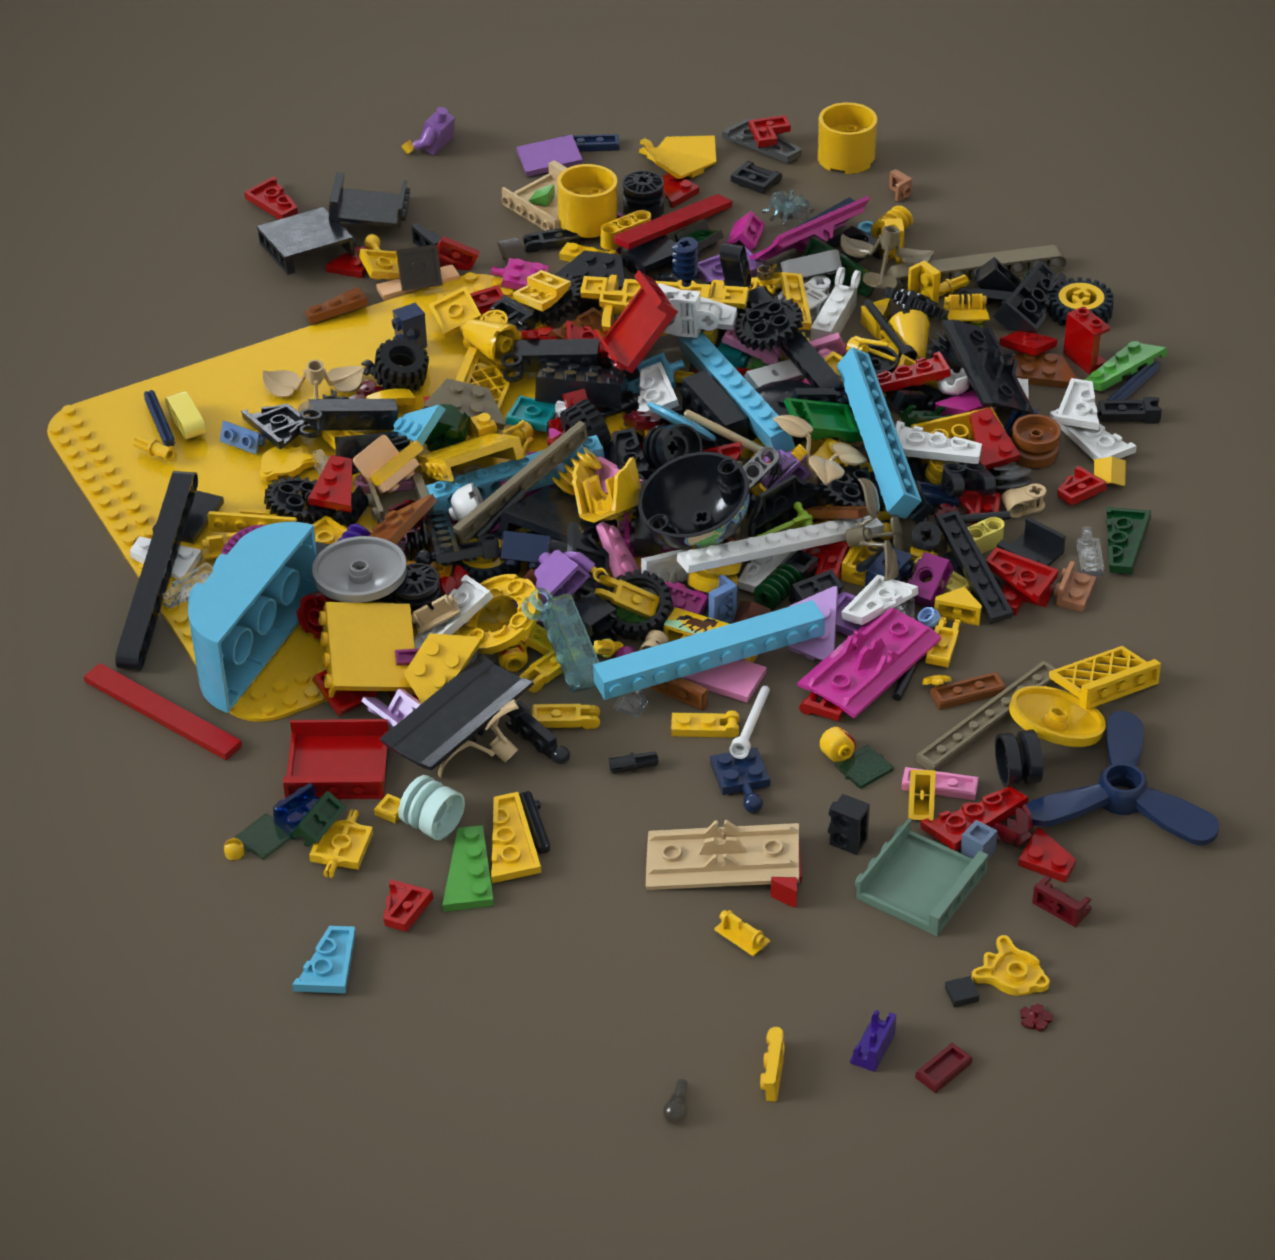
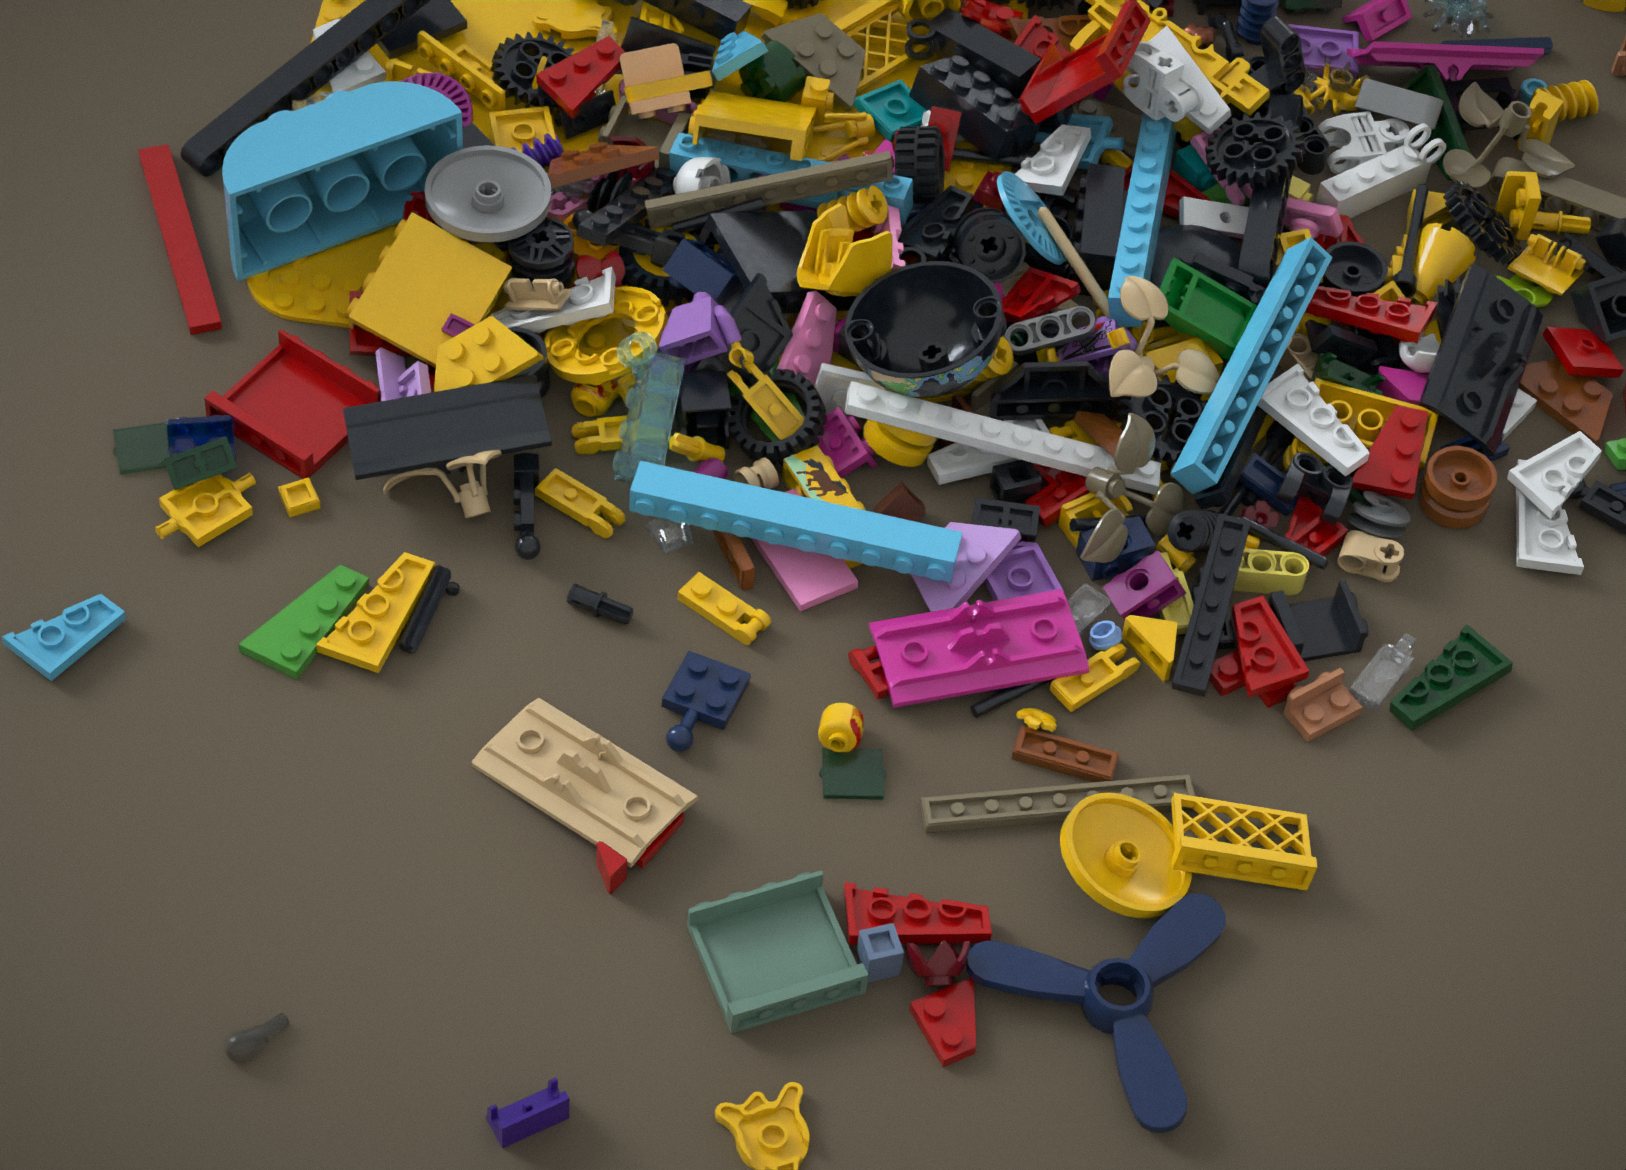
camera: 30 degrees right, 10 degrees up
(234, 849) = (96, 447): yellow hinge -> none
(405, 904) = (200, 619): red wing -> none
(431, 807) = (324, 523): light aqua wheel -> none
(723, 601) = (873, 473): medium blue bracket -> none
(740, 745) = (724, 660): white piece -> none
(741, 933) = (515, 886): yellow hinge -> none
(773, 1064) = (394, 1064): yellow hinge -> none
(776, 586) = (962, 487): dark green piece -> none
(794, 289) = (1334, 138): yellow plate -> none
(802, 520) = (1068, 425): lime piece -> none
(849, 824) = (748, 833): black brick -> none
(861, 344) = (1341, 244): yellow plant -> none
(877, 599) = (1055, 575): white wing -> none
(921, 794) = (873, 852): yellow slope -> none
(948, 784) = (917, 850): bright pink tile -> none
(962, 991) = (687, 1119): black tile -> none
(1019, 758) = (1022, 878): black wheel -> none
(1059, 903) = (907, 1086): dark red hinge -> none
(1080, 486) = (1460, 579): red wing -> none
(1110, 470) = (1516, 582): yellow panel -> none

